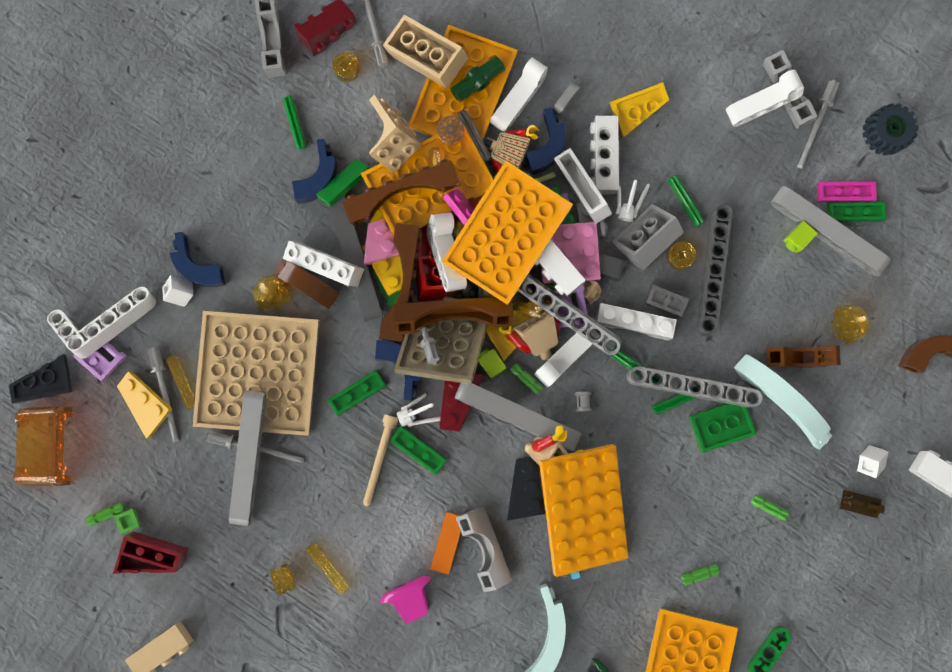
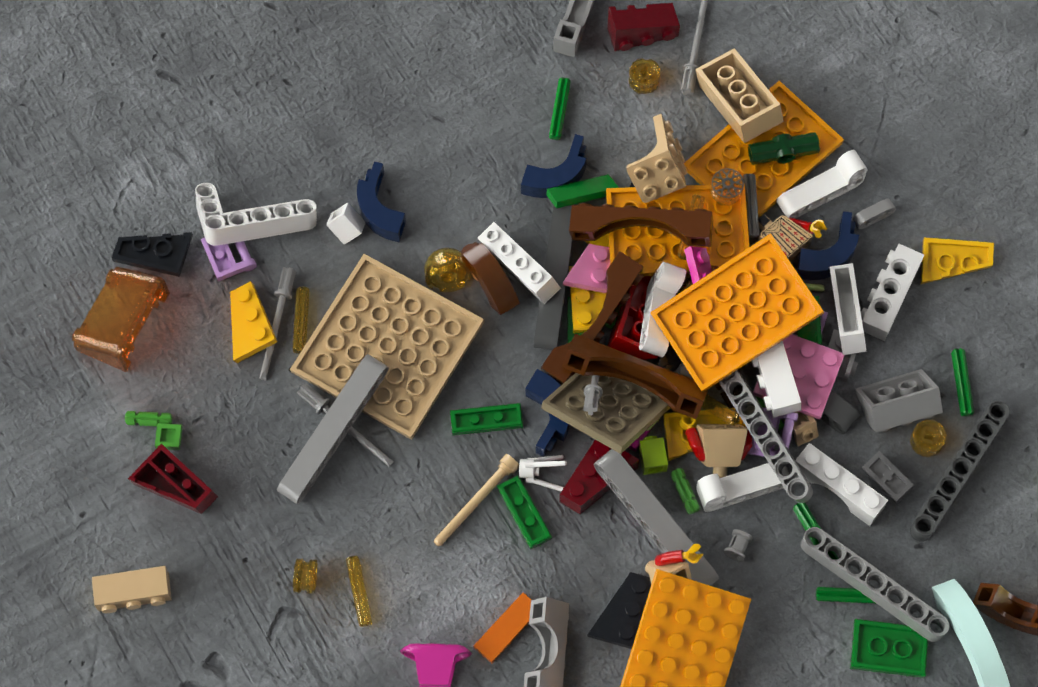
camera: 30 degrees right, 15 degrees down
(628, 212) = (887, 363): white plant -> none

